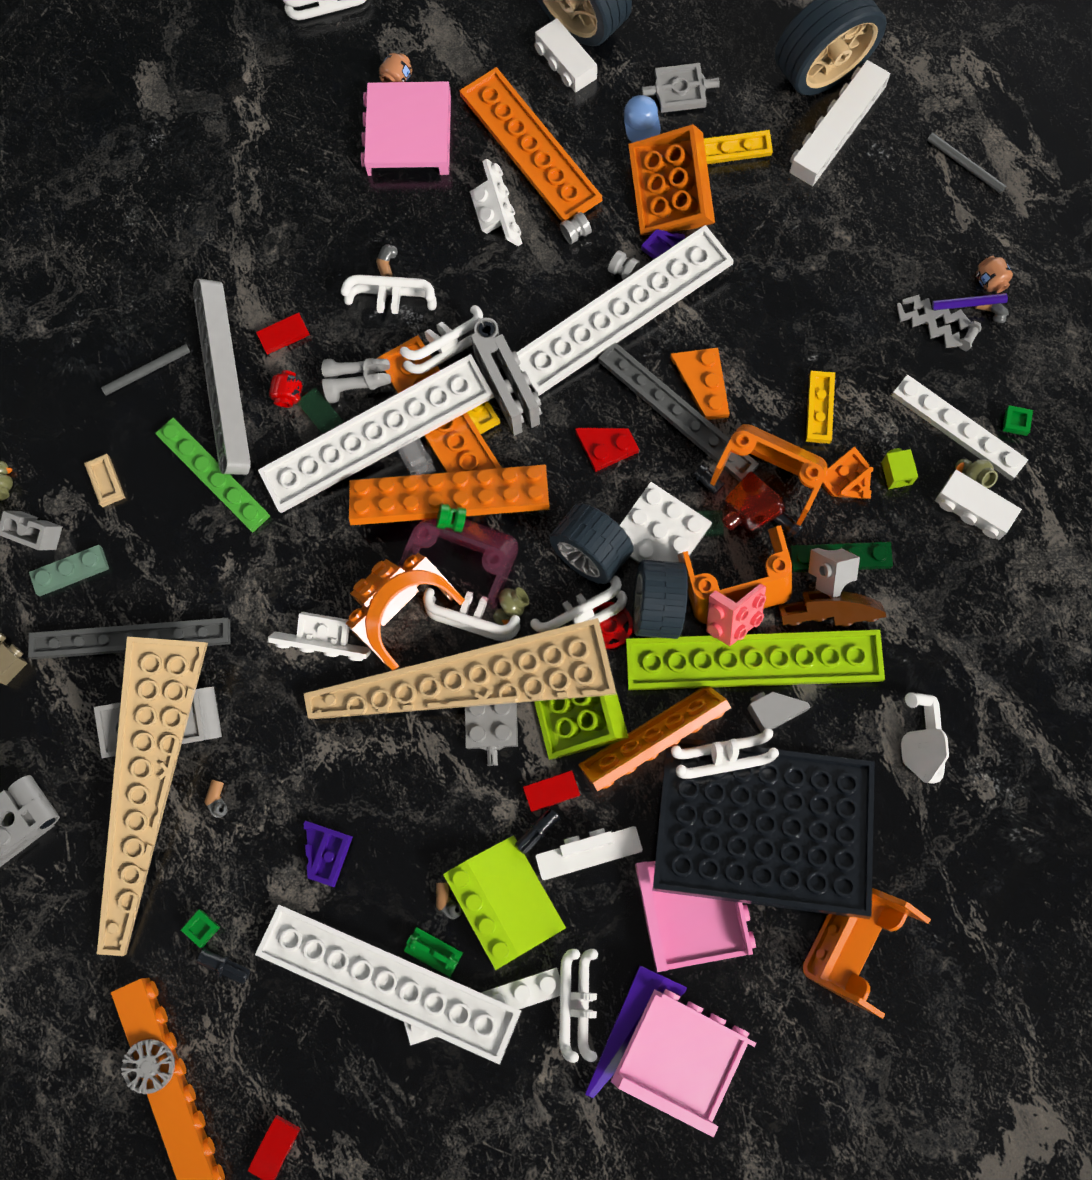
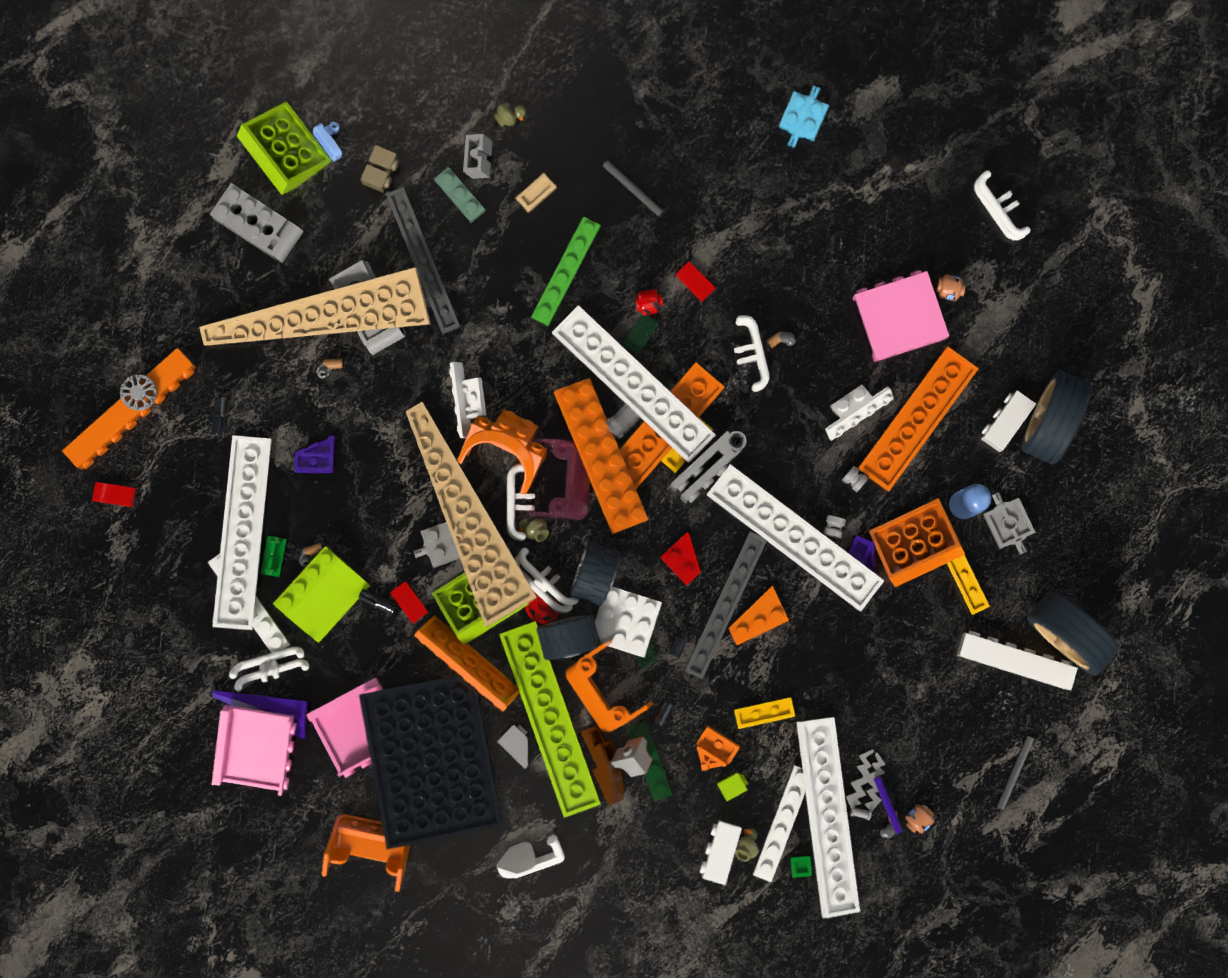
camera: 65 degrees right, 10 degrees up
(142, 163) = (803, 116): none -> medium azure plate
(200, 928) = (238, 390): green plate -> none
(221, 377) = (643, 249): light grey beam -> none
(370, 379) = (660, 337): light grey piece -> none
(446, 344) = (717, 410): white piece -> none
(446, 516) = (579, 465): green wheel -> none
(588, 852) = (373, 641): white bracket -> none
(724, 756) = (469, 716): white piece -> none
(733, 620) = (567, 695): coral bracket -> none
(752, 504) = (666, 682): clear red torso -> none
(779, 452) = (711, 714): orange windscreen -> none
(968, 371) = (828, 817): none -> white plate

